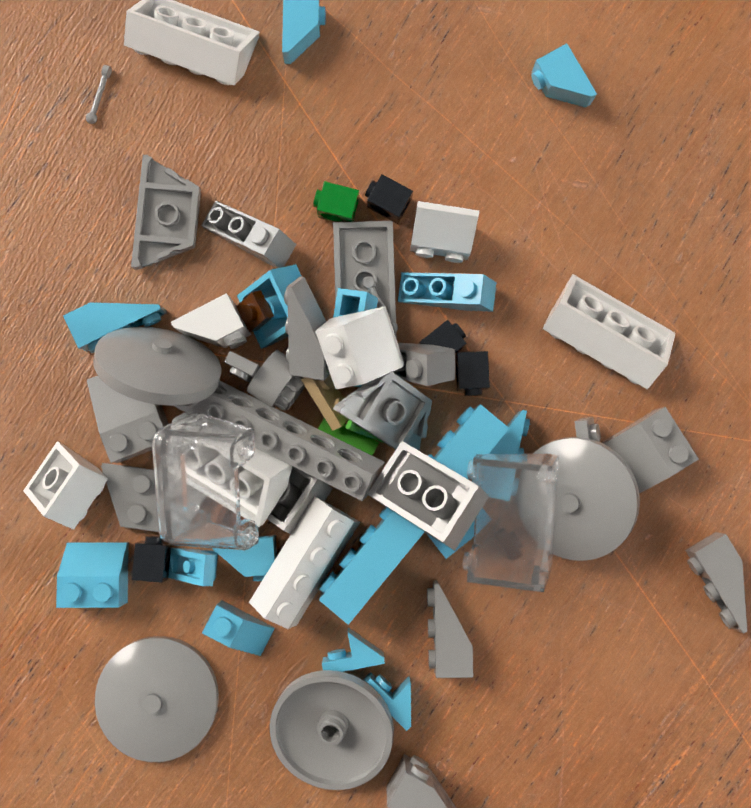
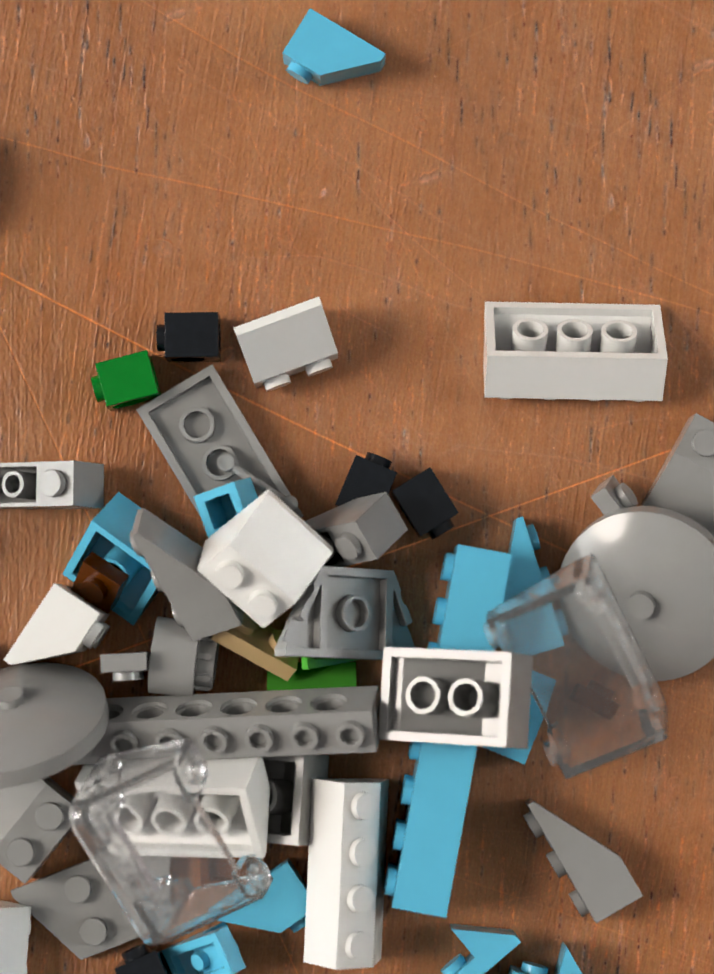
camera: 30 degrees left, 0 degrees up
(448, 290) = (335, 415): medium azure slope -> none

